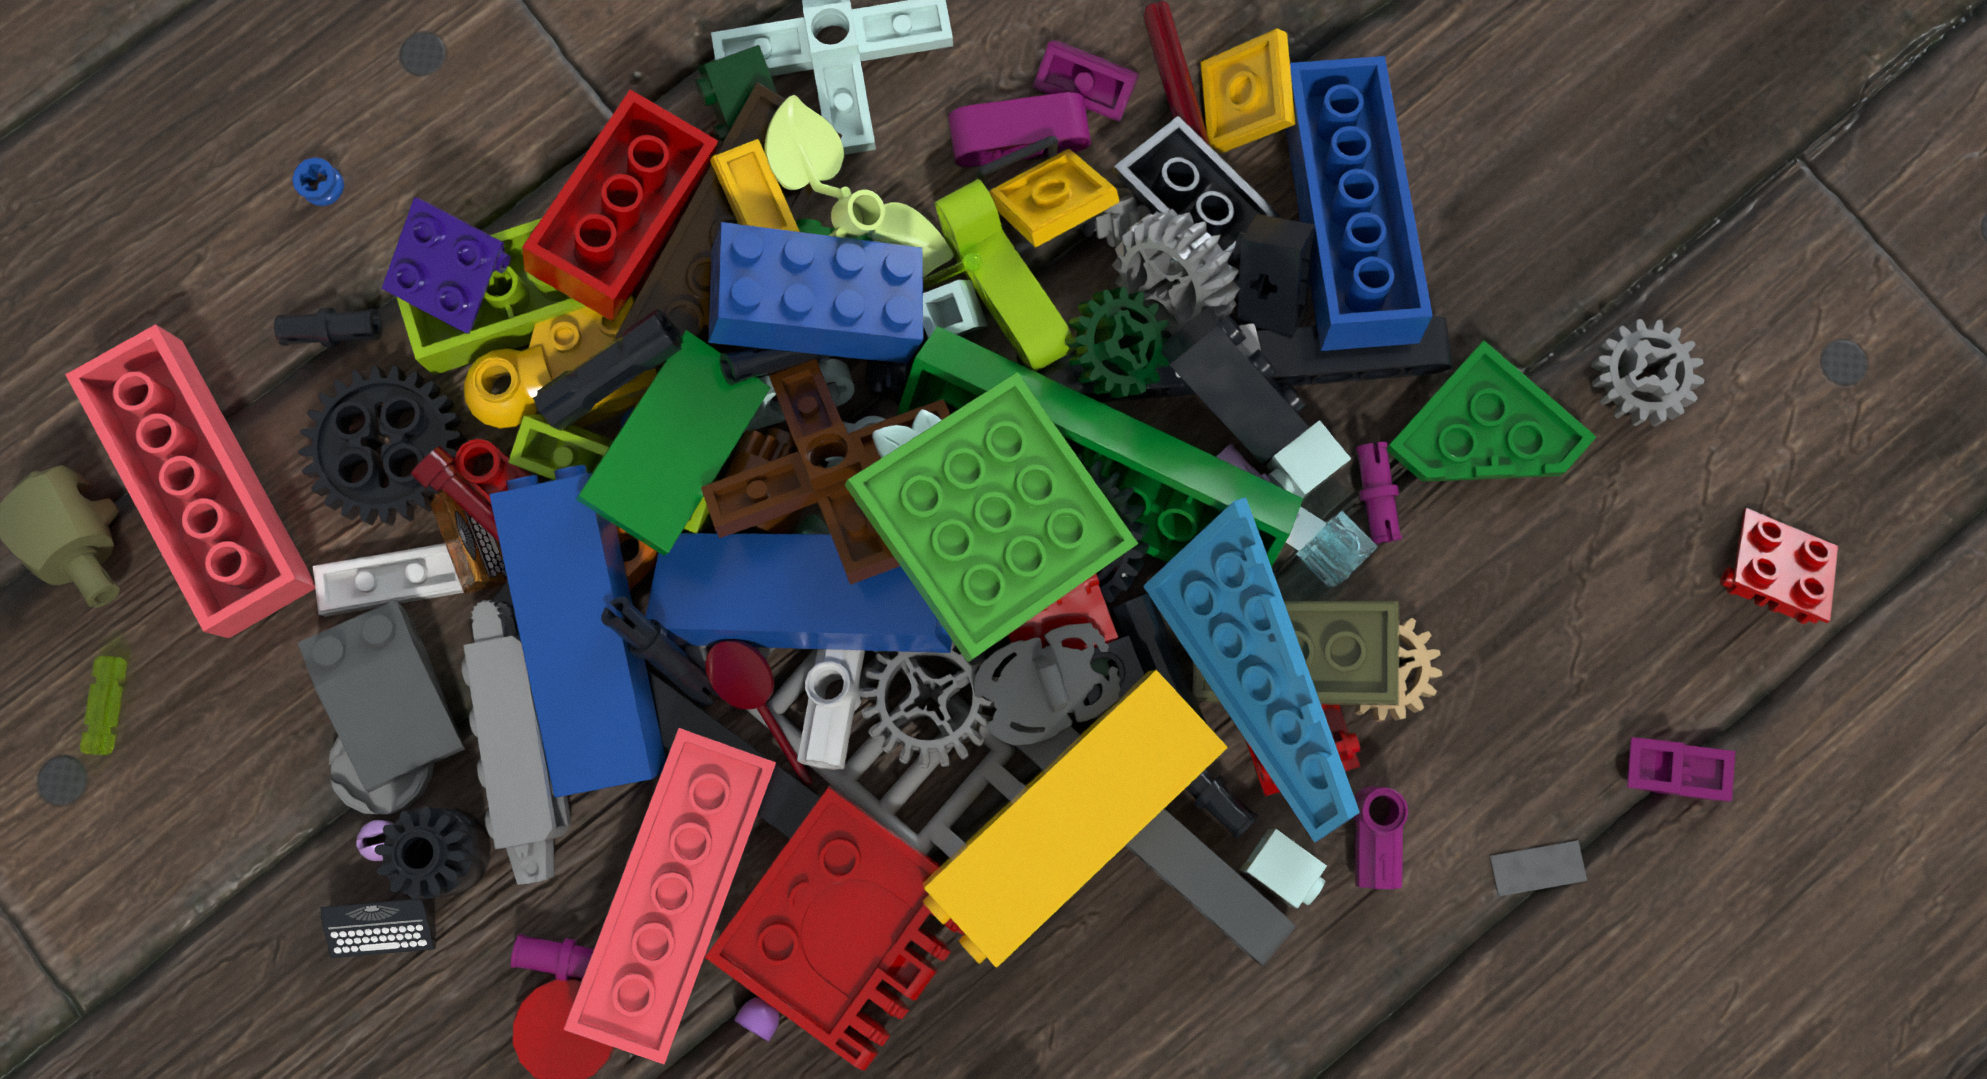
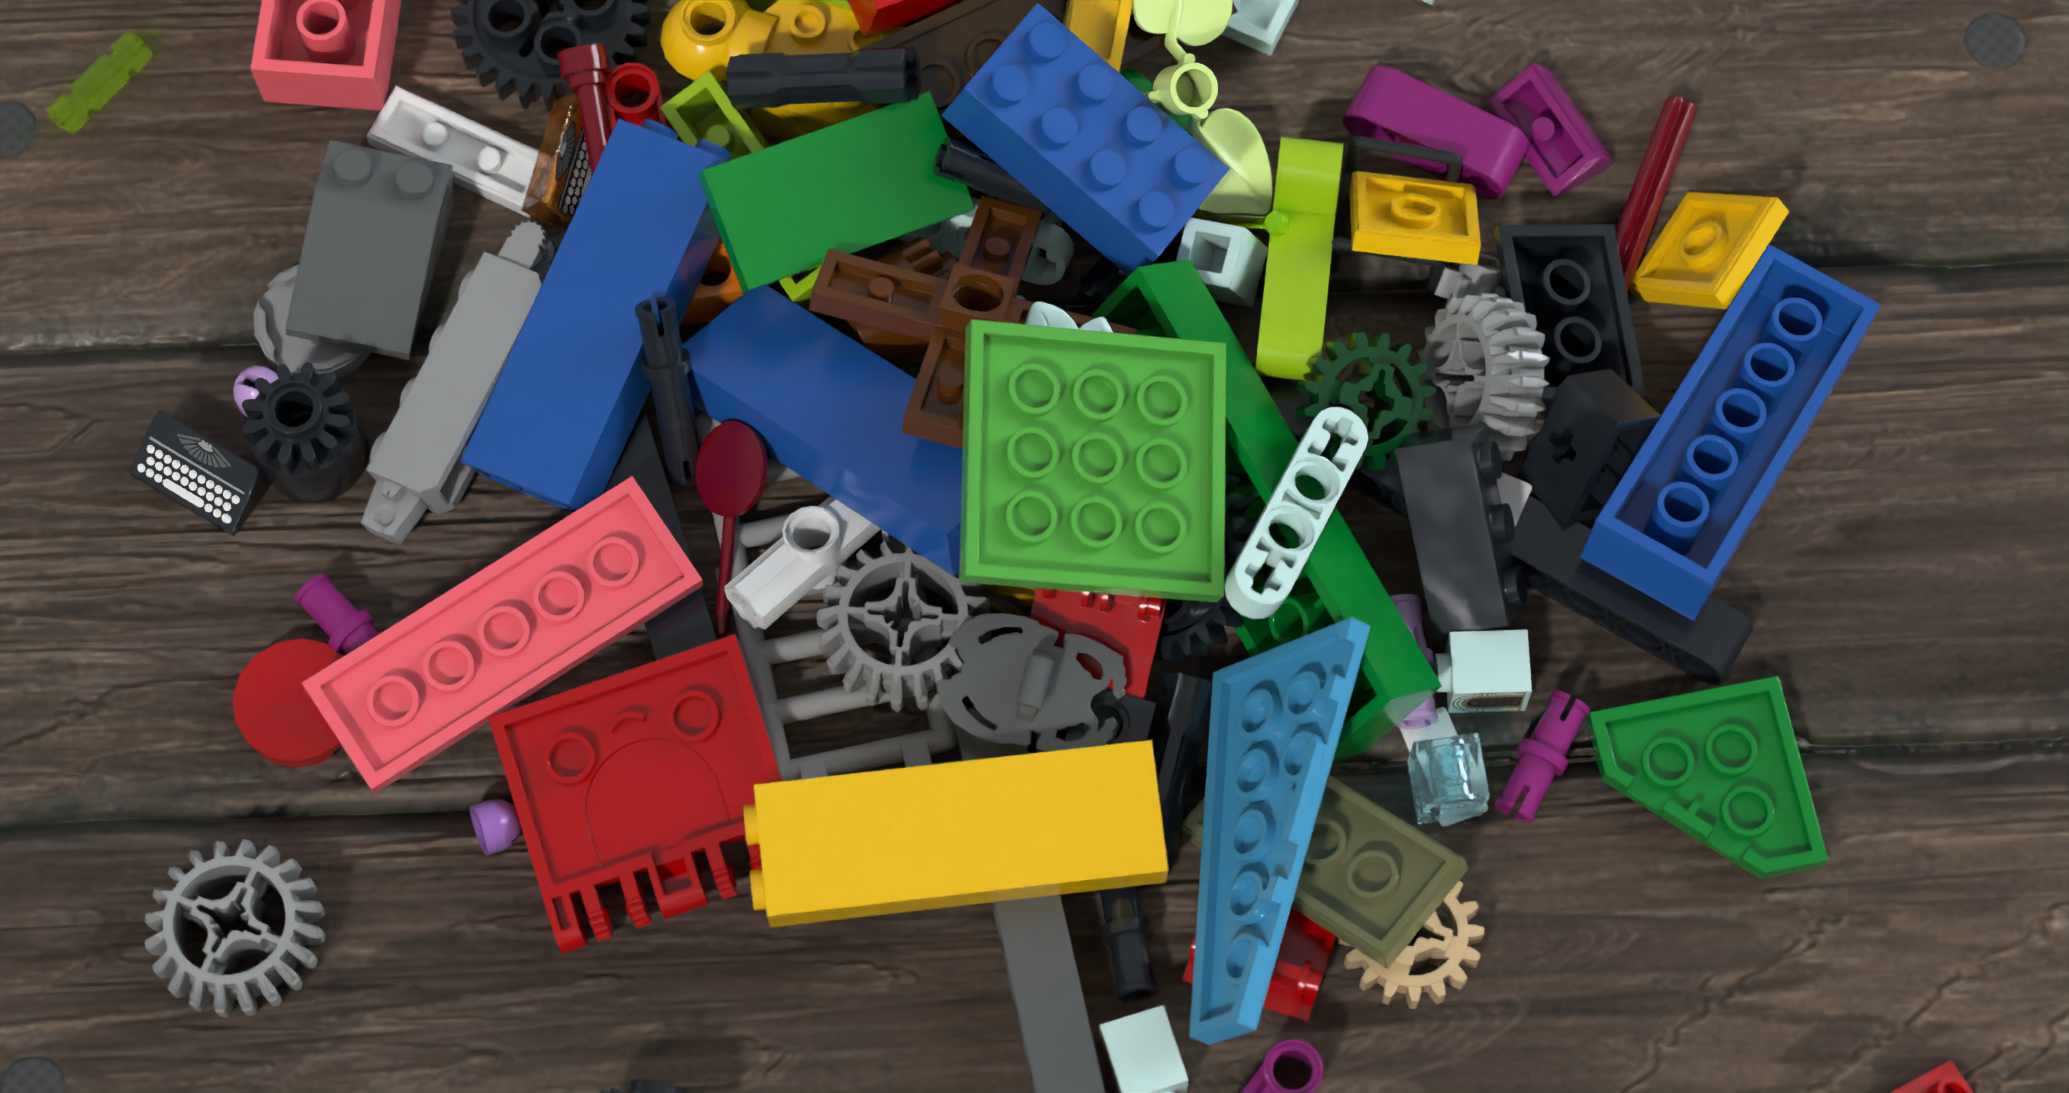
camera: 40 degrees right, 10 degrees down
(1146, 452) = (1298, 512): none -> light aqua beam
(1642, 349) = (1942, 808): light grey gear -> none

